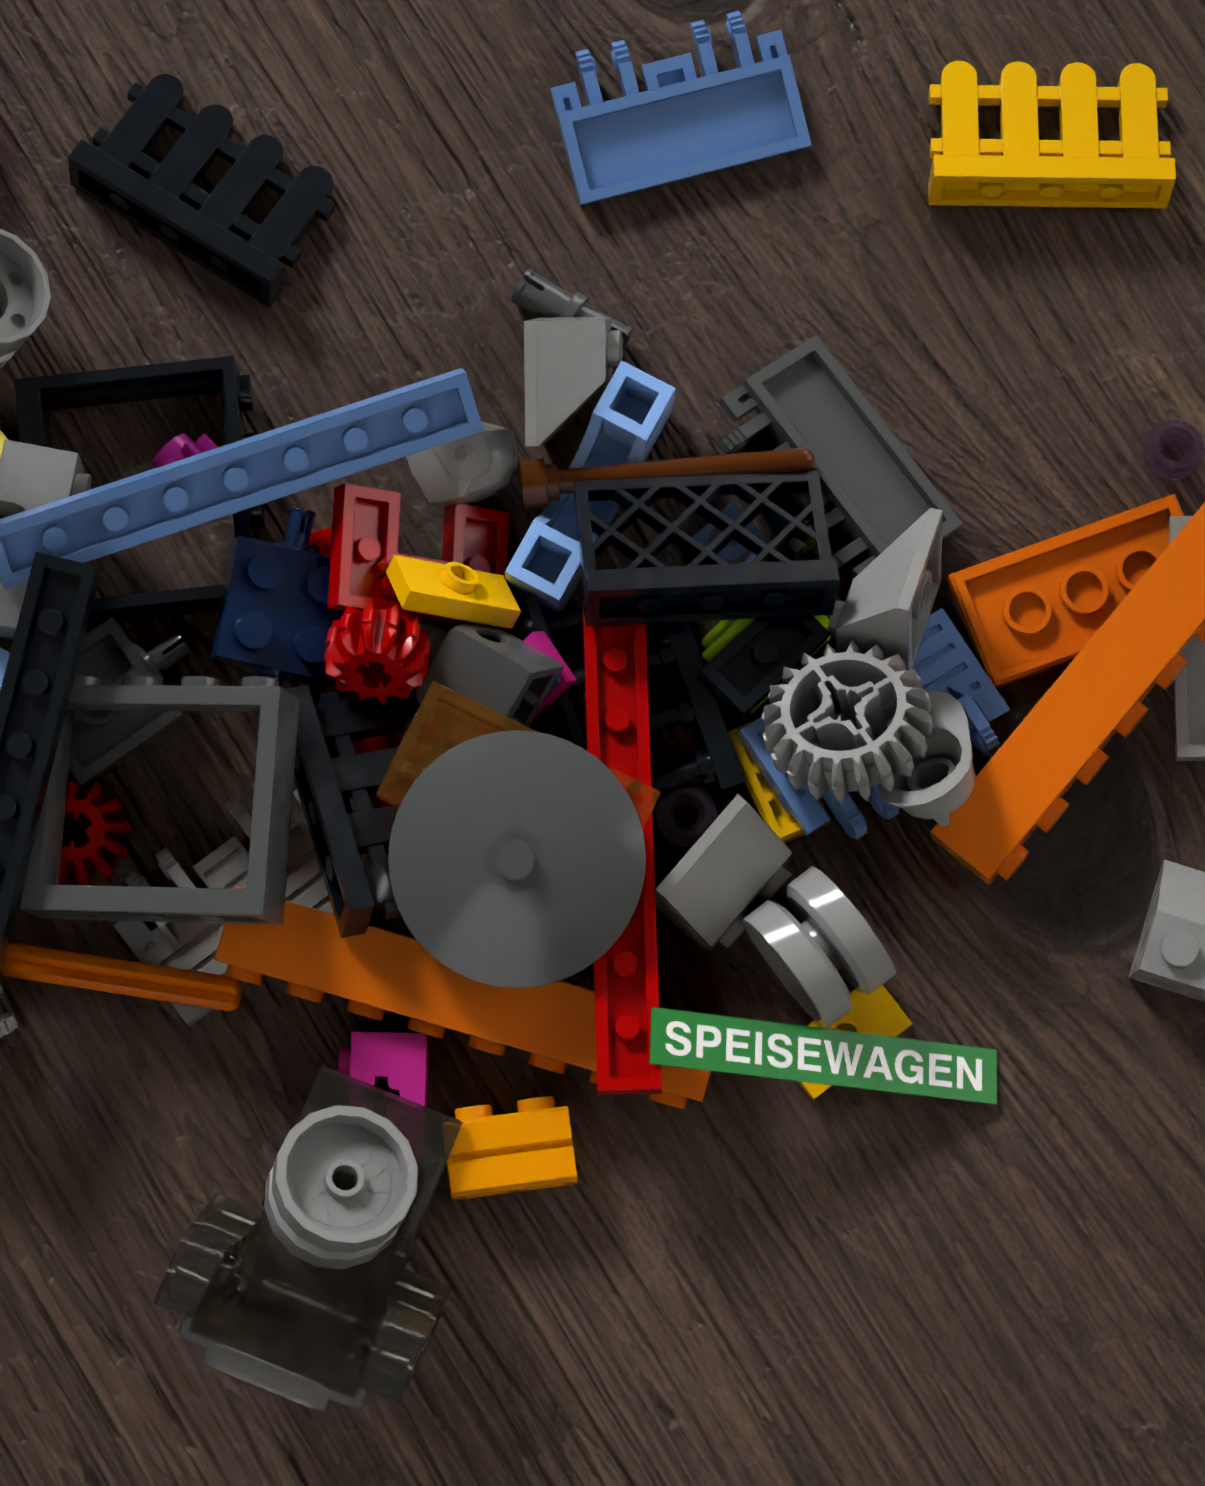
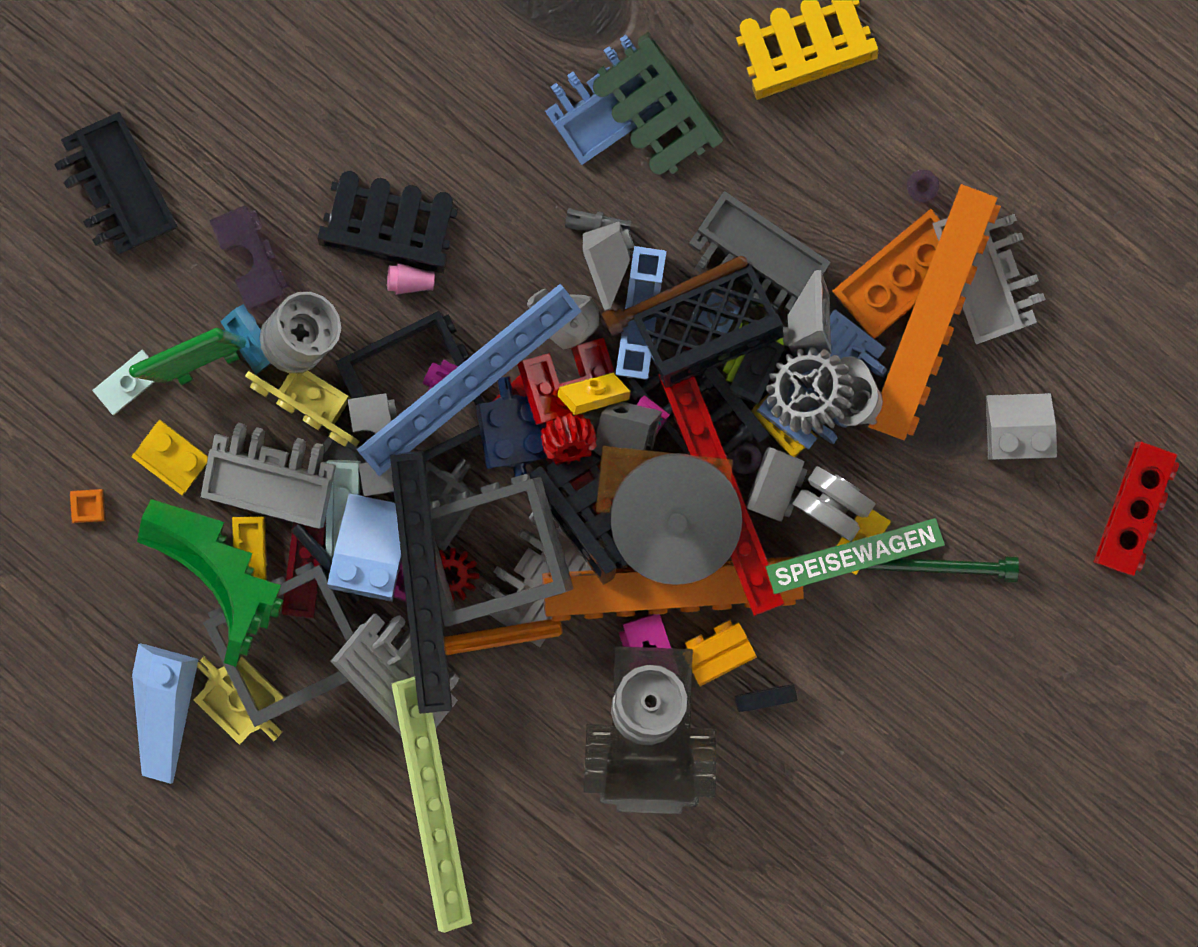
camera: 20 degrees left, 10 degrees up
(203, 292) = (409, 279): none -> bright pink cone
(568, 1267) = (766, 698): none -> black beam
(748, 113) = (649, 92): none -> dark green fence
(1093, 1186) = (1005, 569): none -> dark green piece

